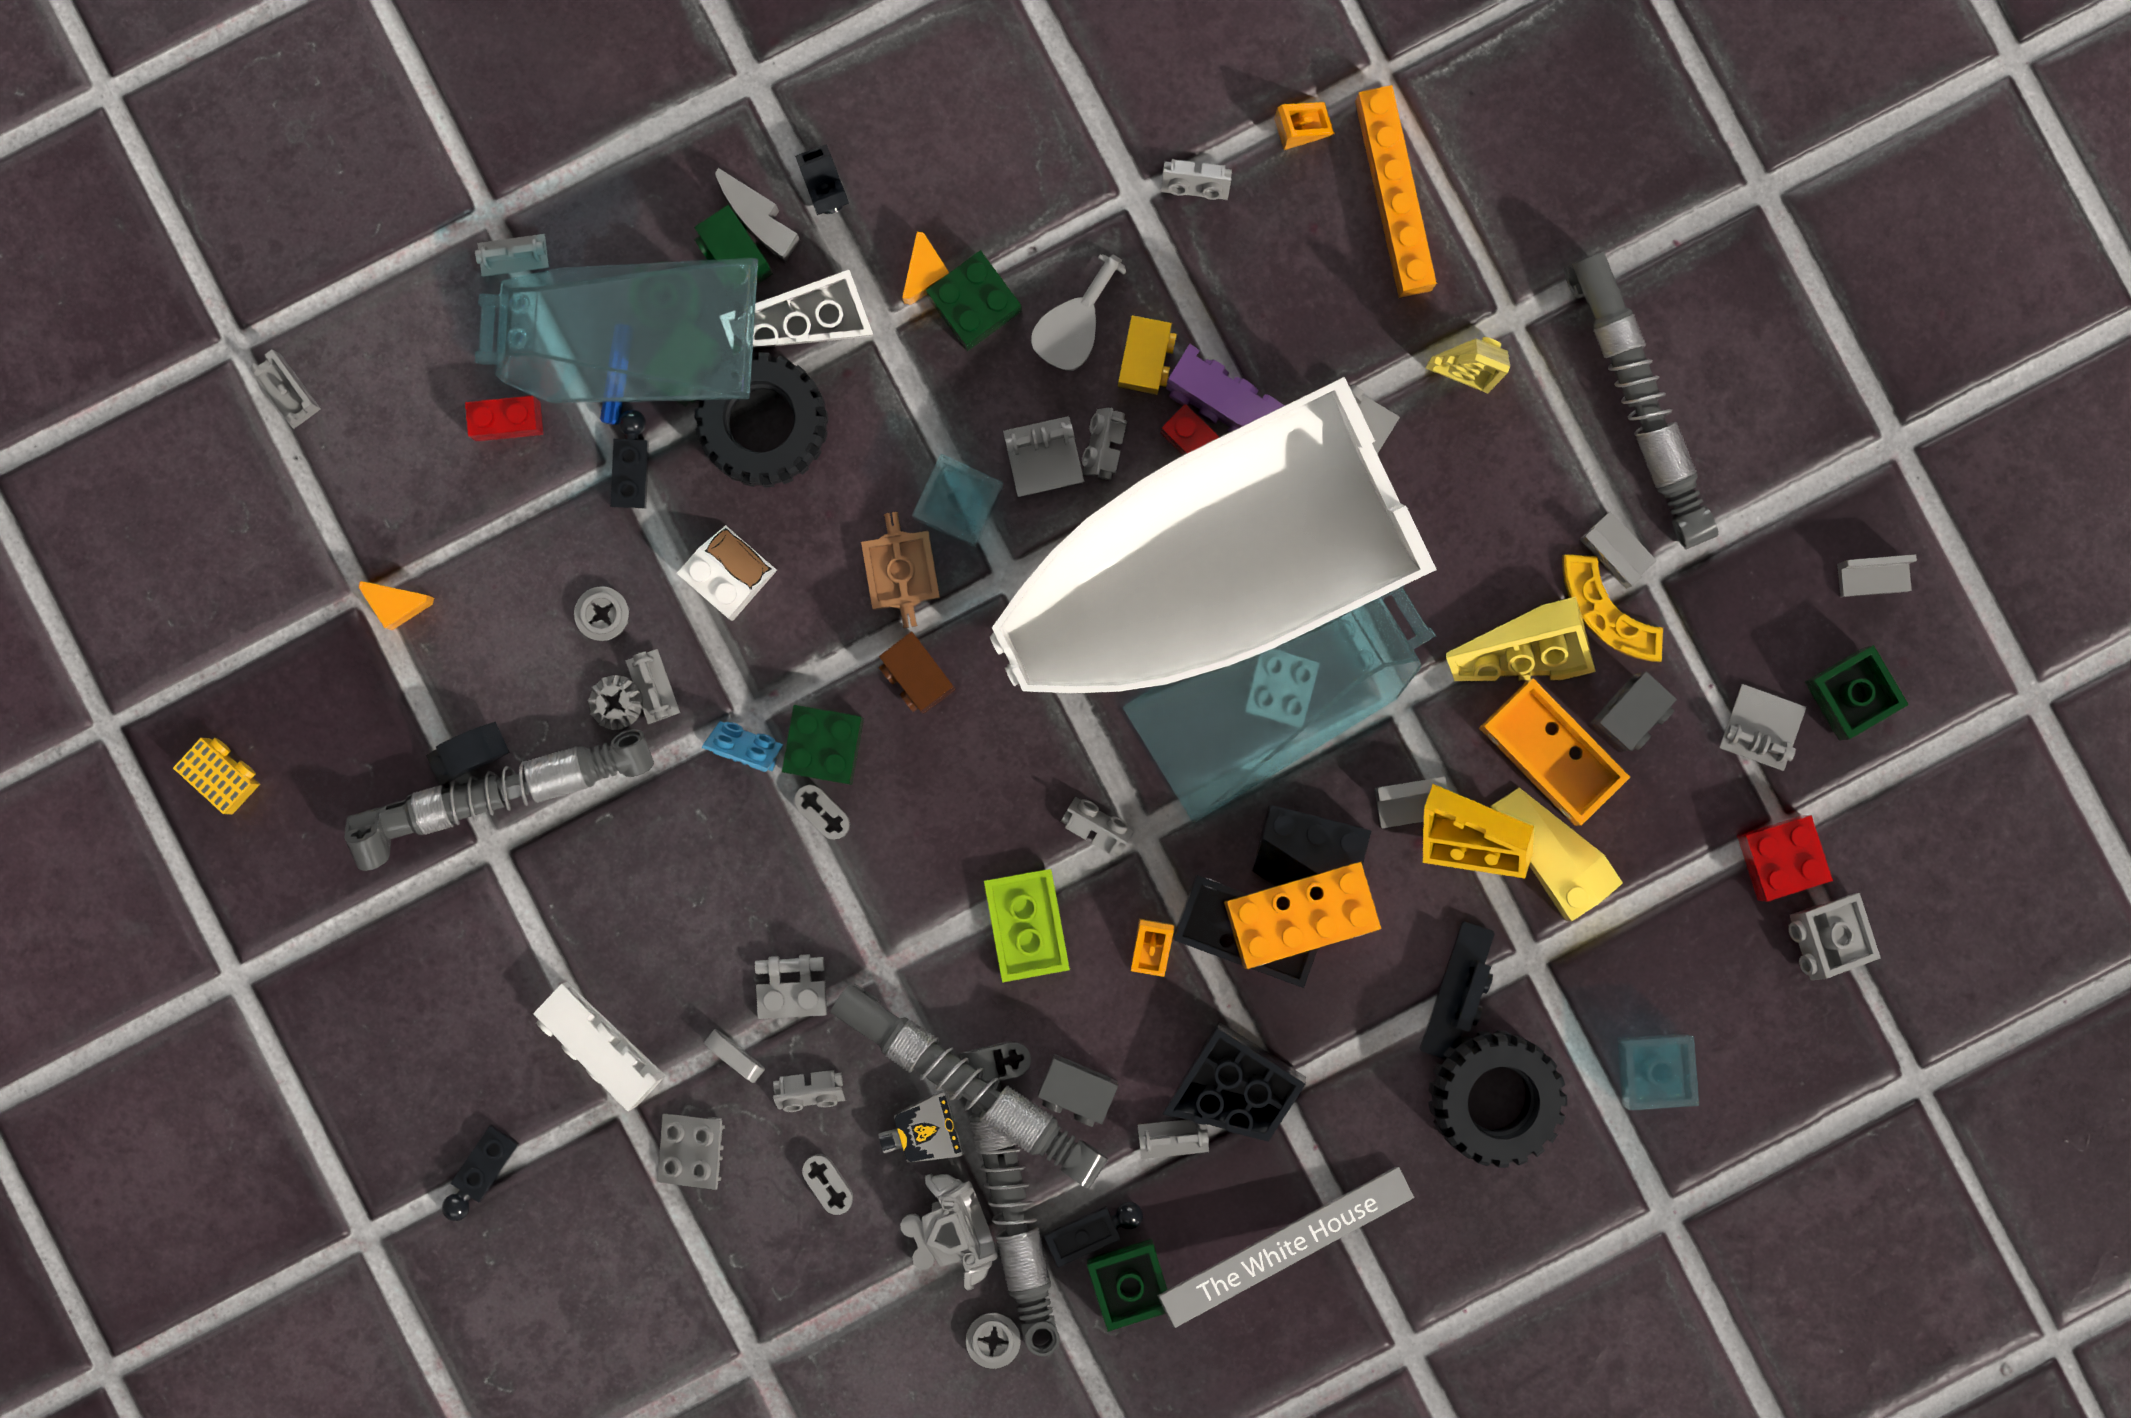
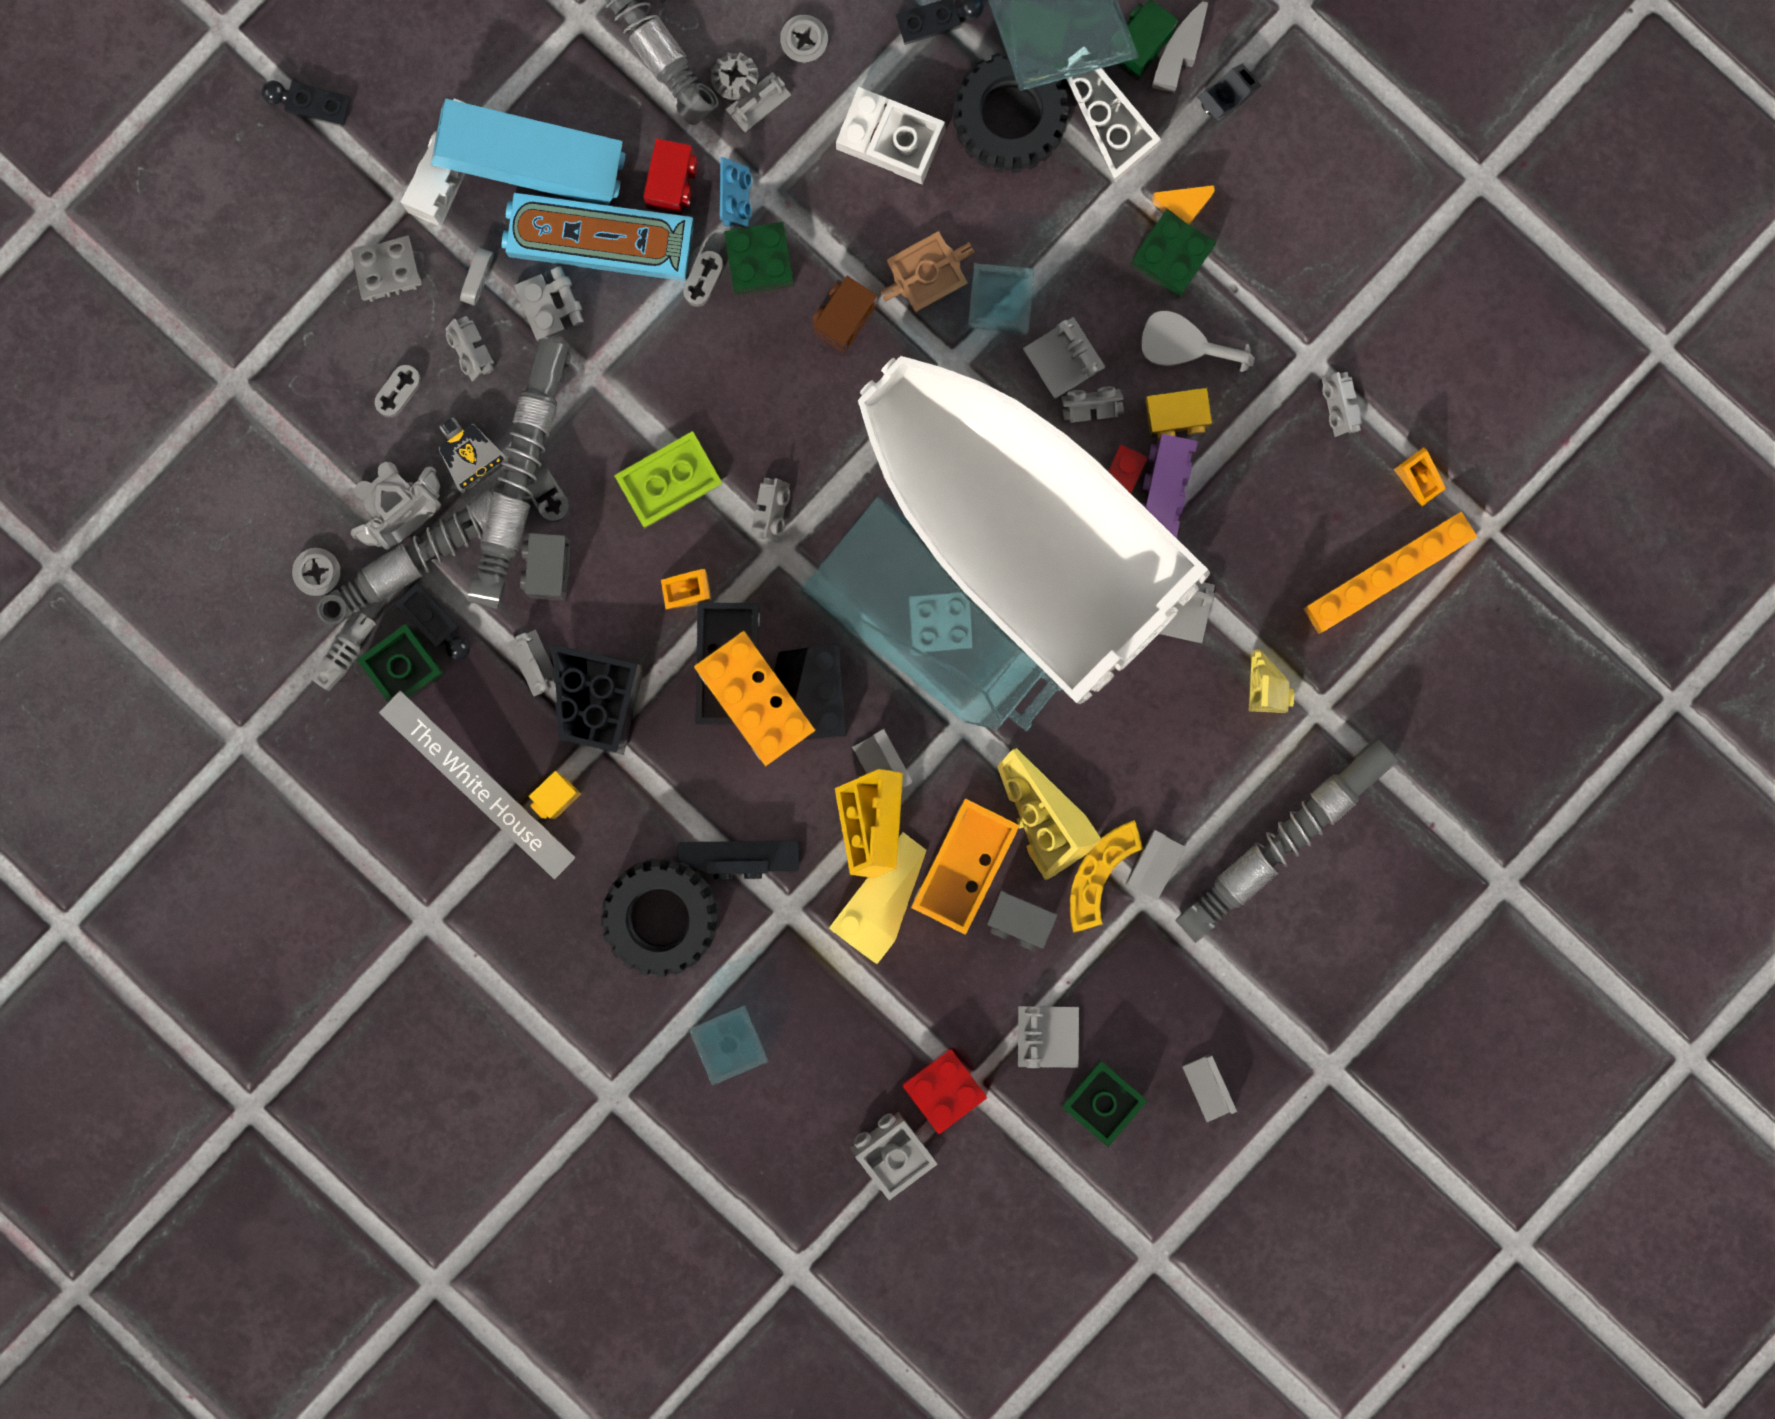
camera: 70 degrees right, 0 degrees up
(622, 954) = (527, 153): none -> medium azure brick
(701, 809) = (670, 177): none -> red brick
(737, 909) = (598, 236): none -> brick
(752, 542) = (906, 141): none -> white slope
(1091, 1341) = (343, 653): none -> light grey hinge
(1327, 1167) = (553, 796): none -> yellow brick

